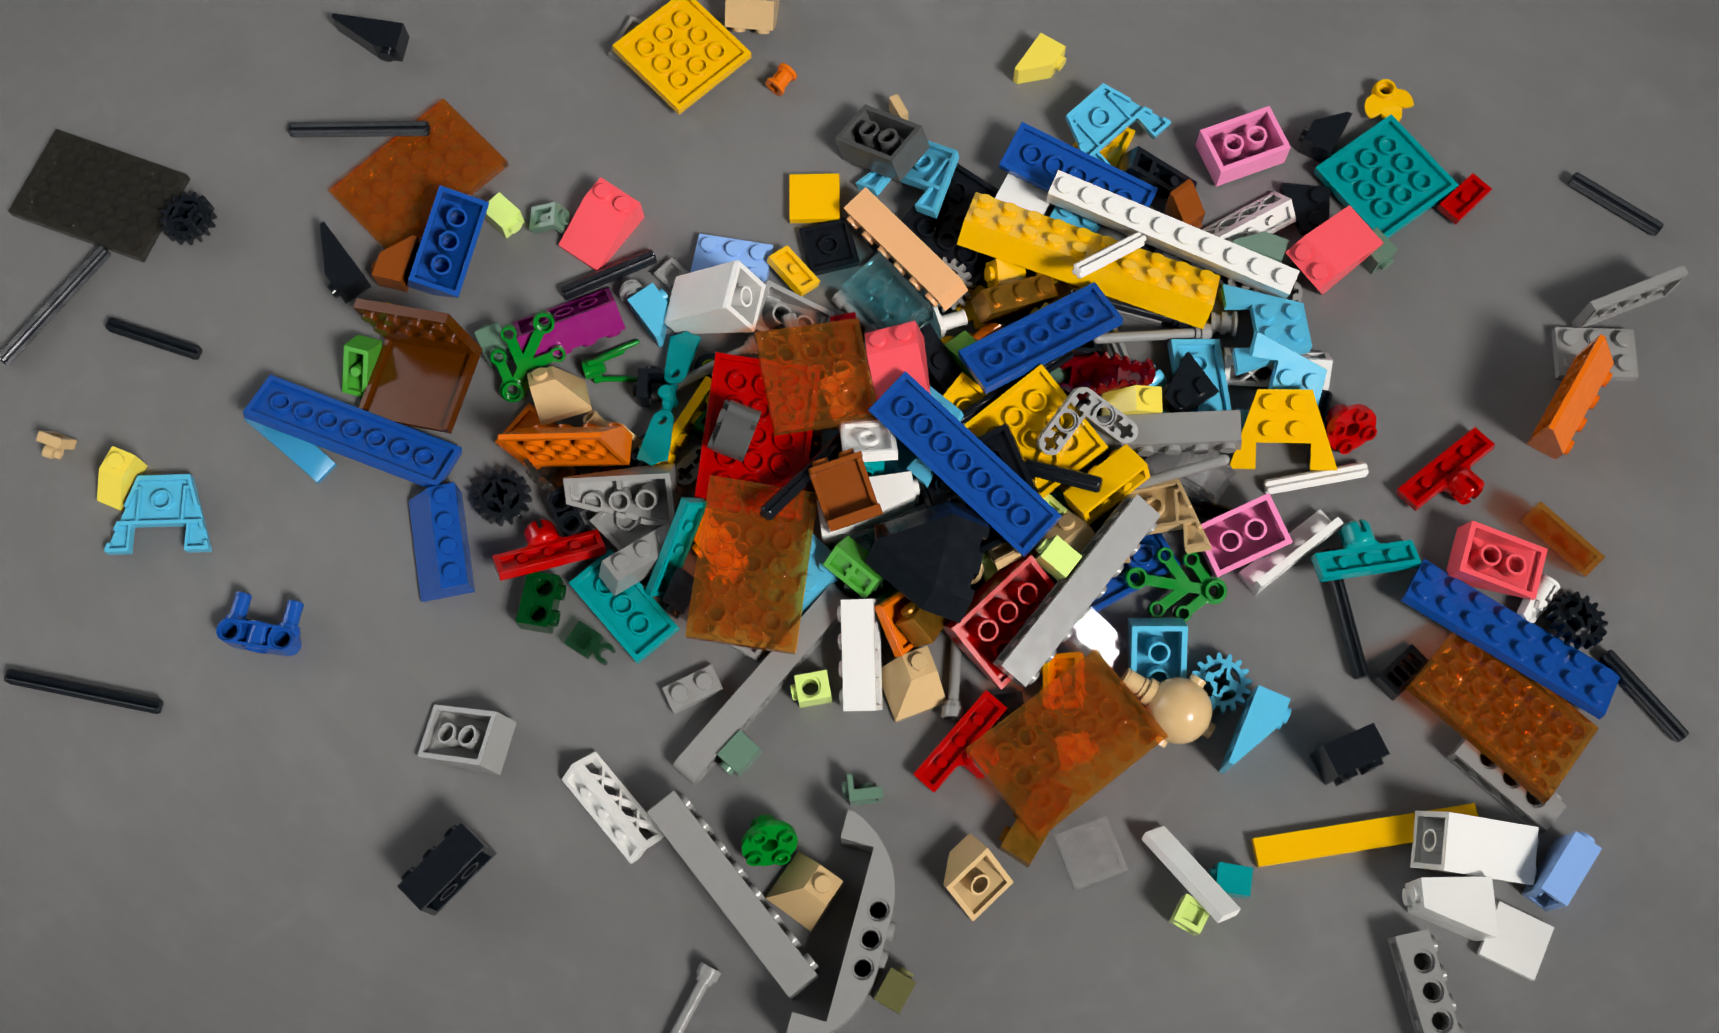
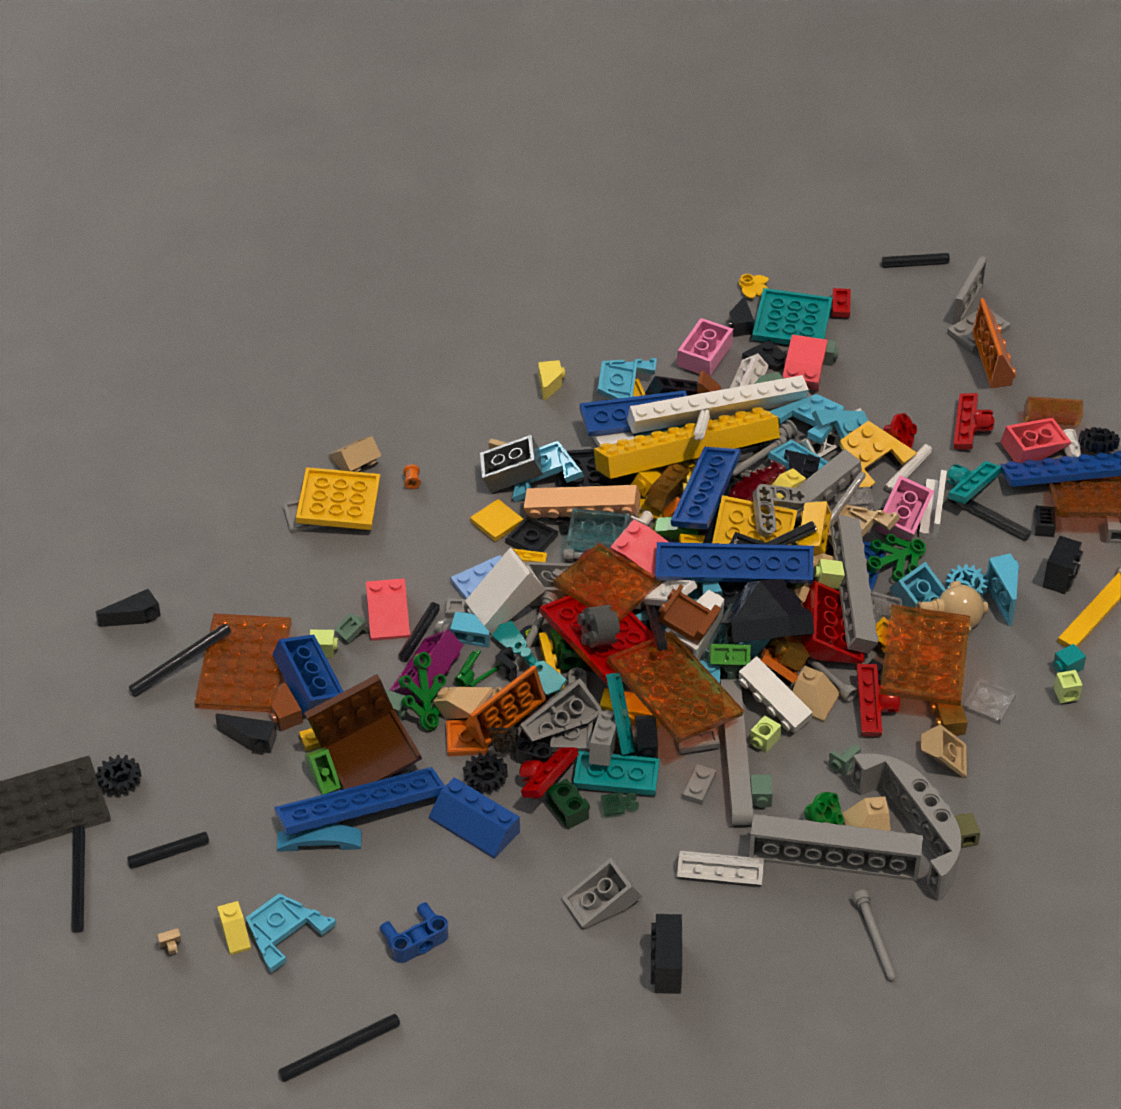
camera: 45 degrees left, 25 degrees down
(1191, 874) = (1047, 667): white tile -> none

